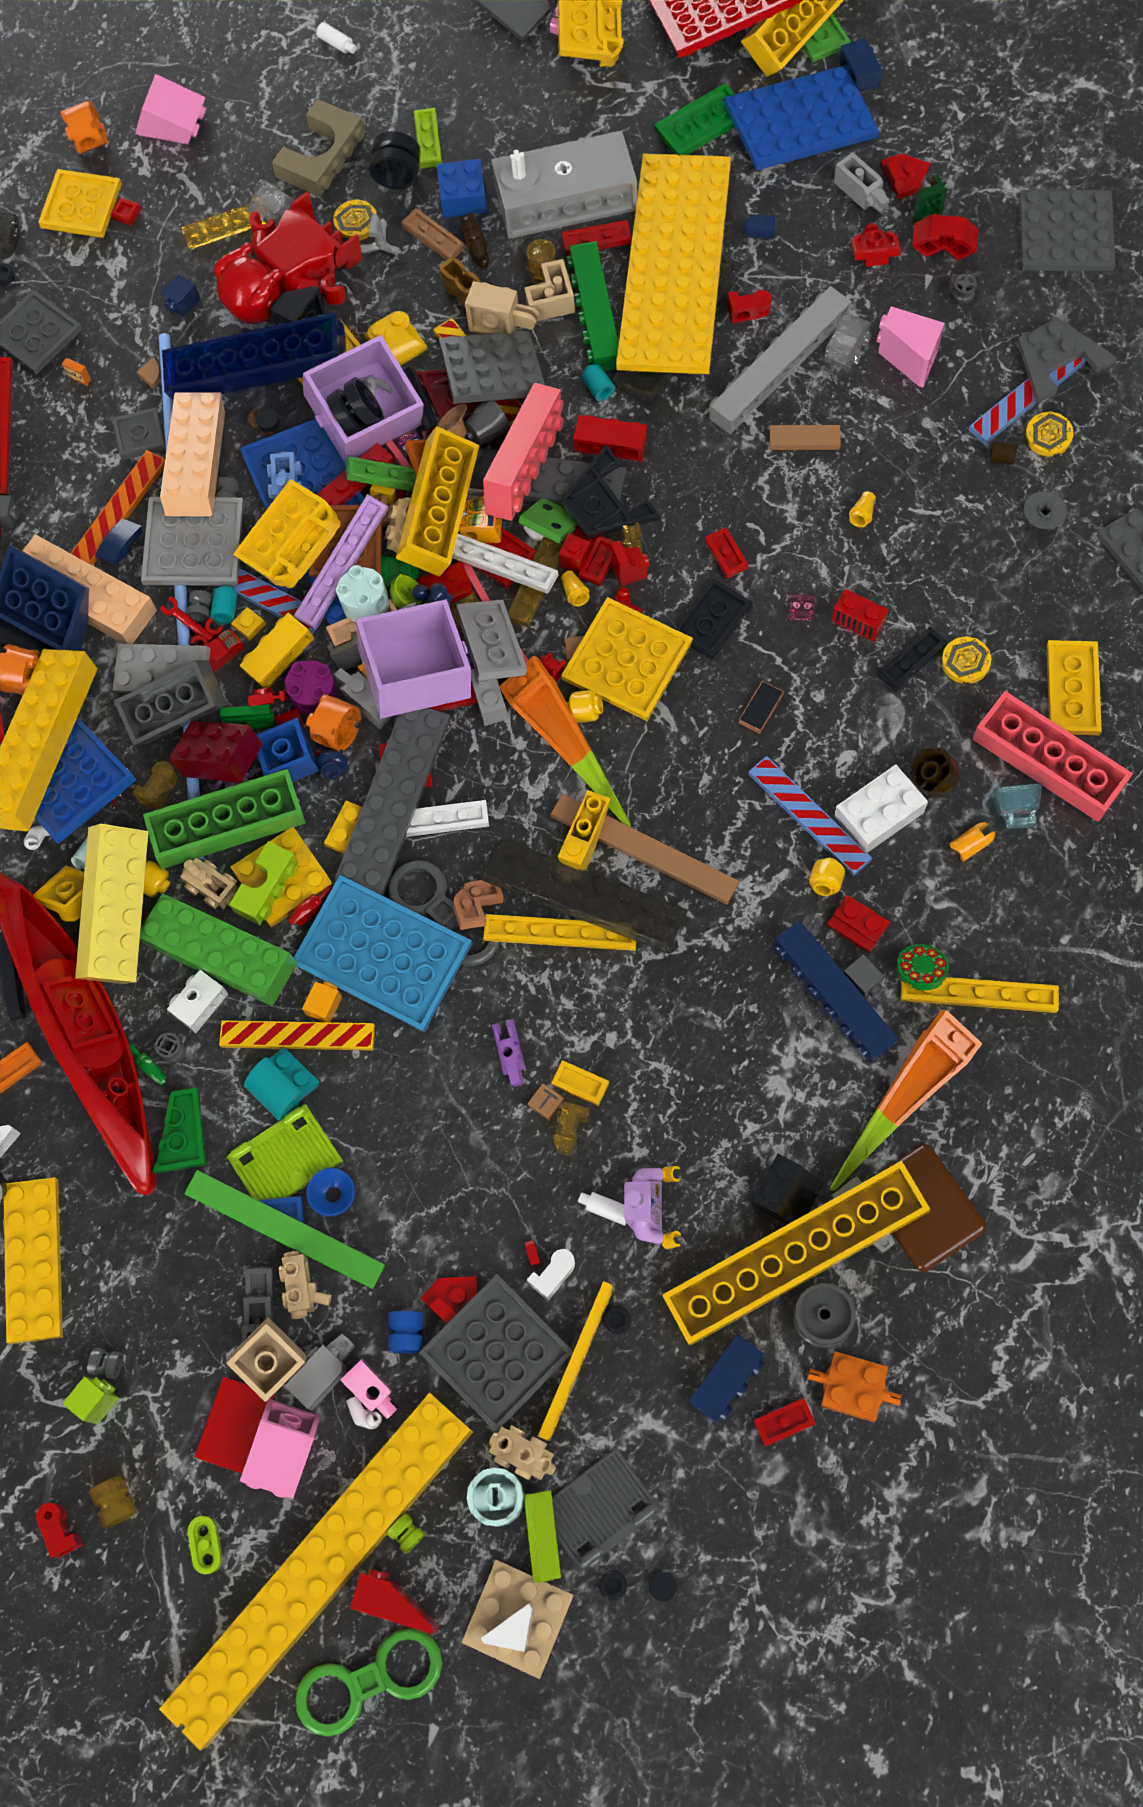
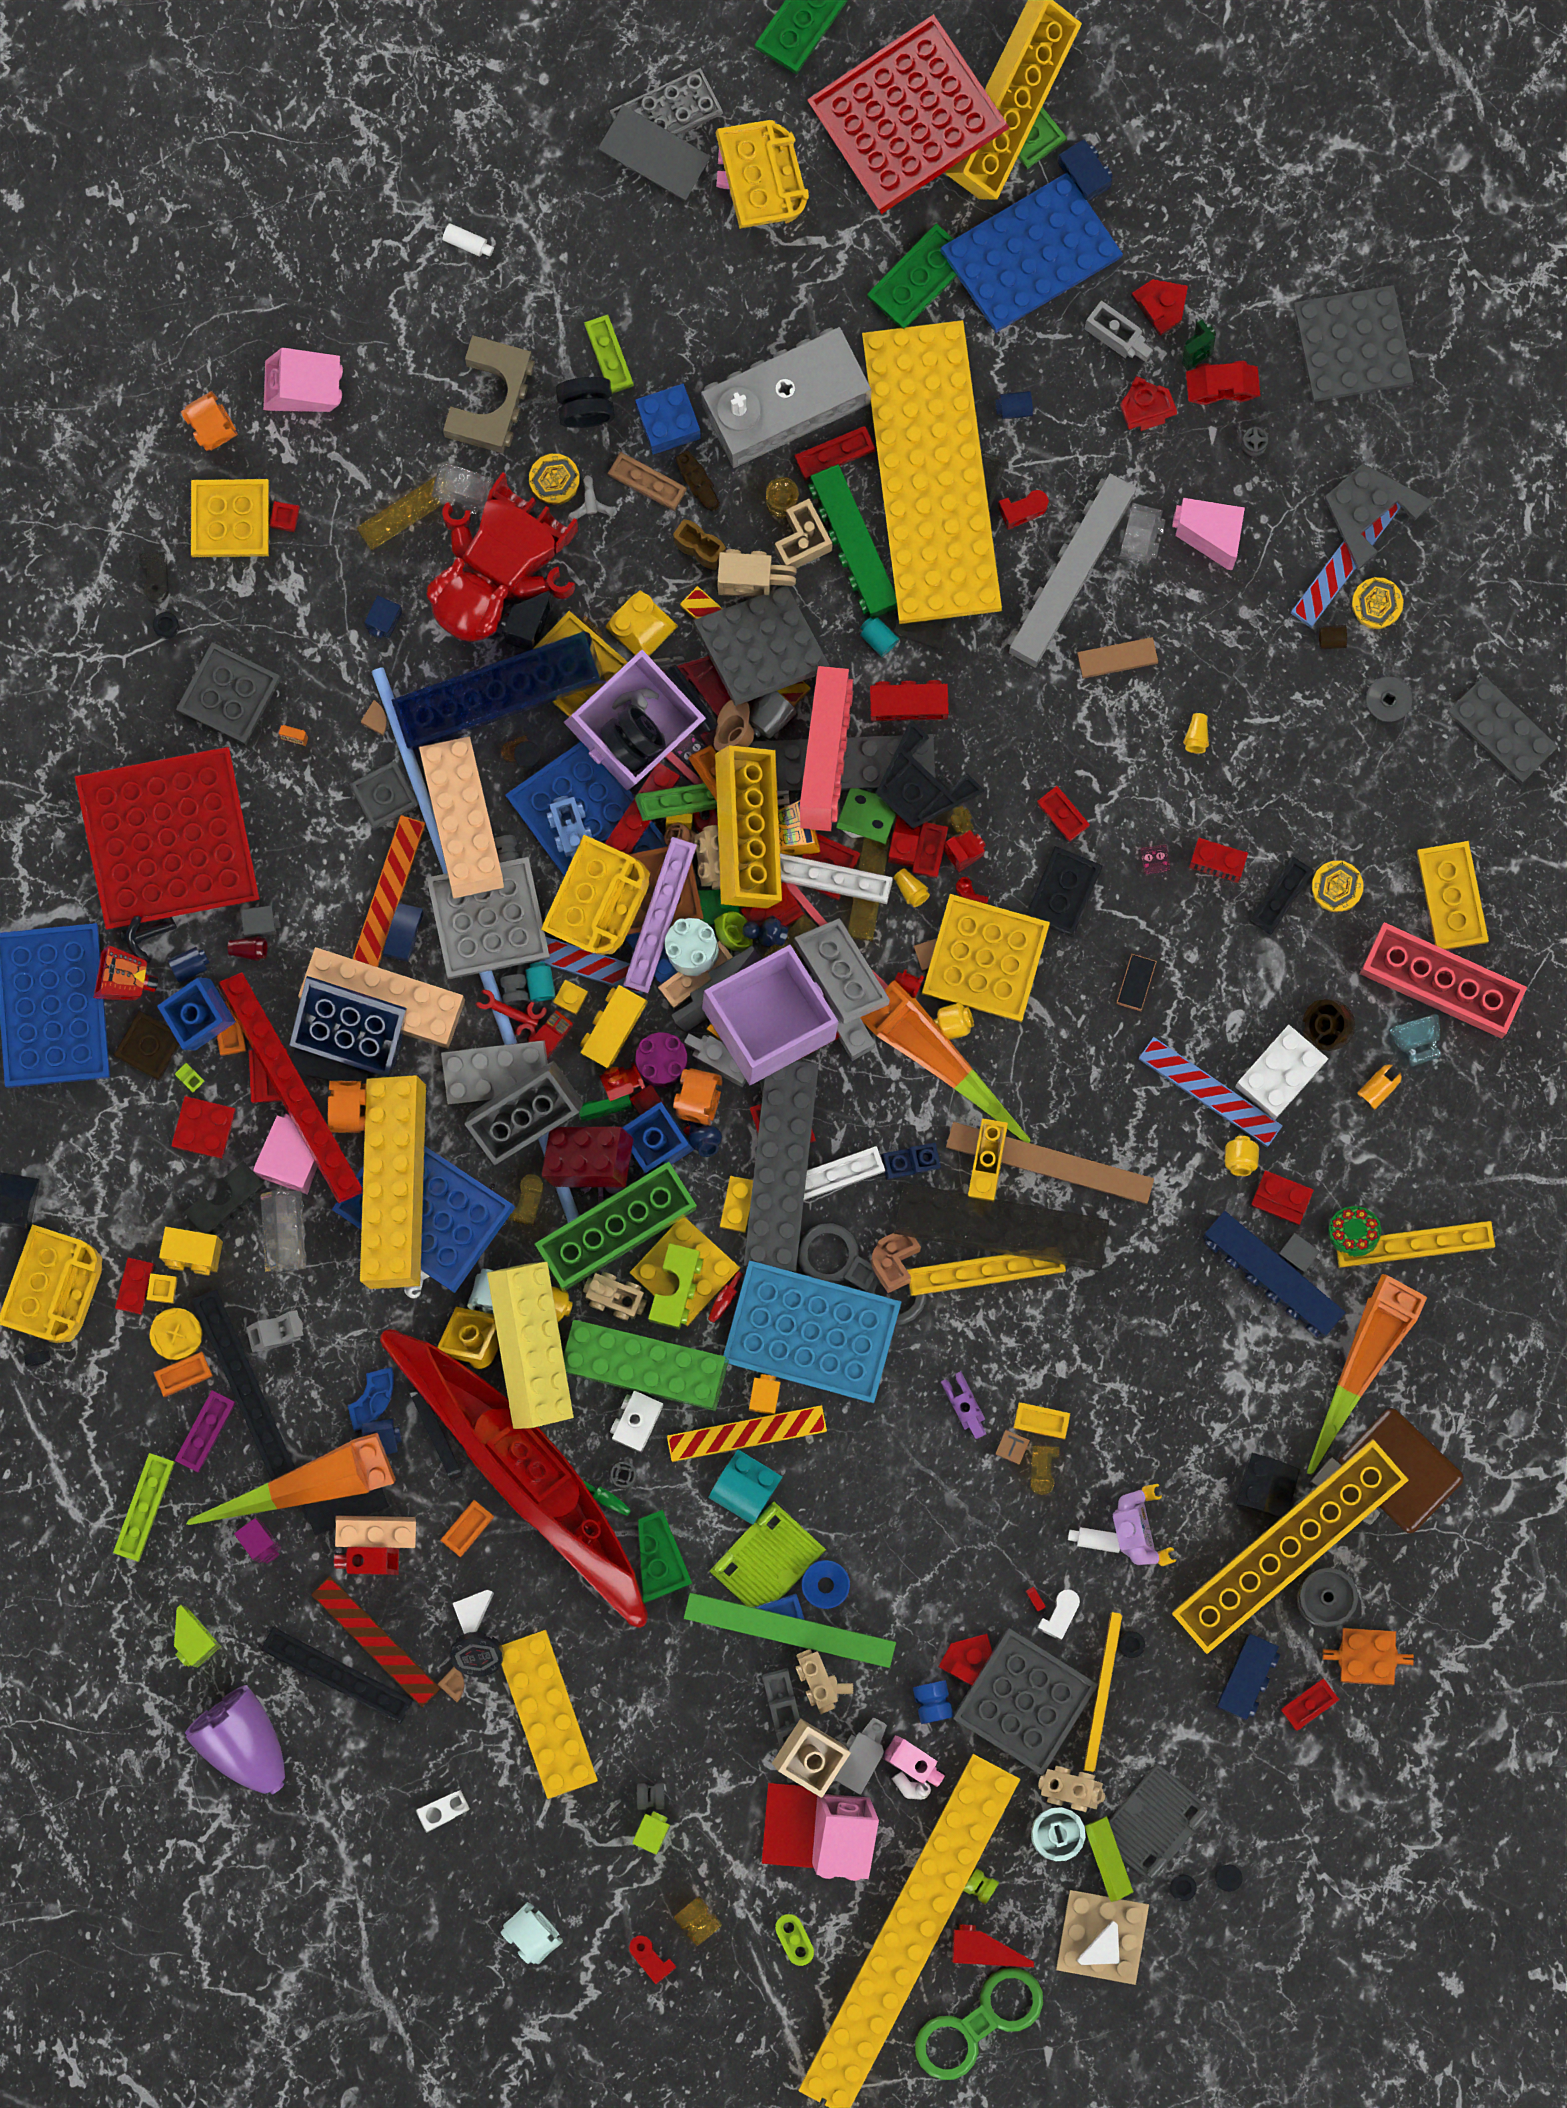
camera: 20 degrees left, 10 degrees up
(515, 822) = (911, 1161): none -> dark blue slope

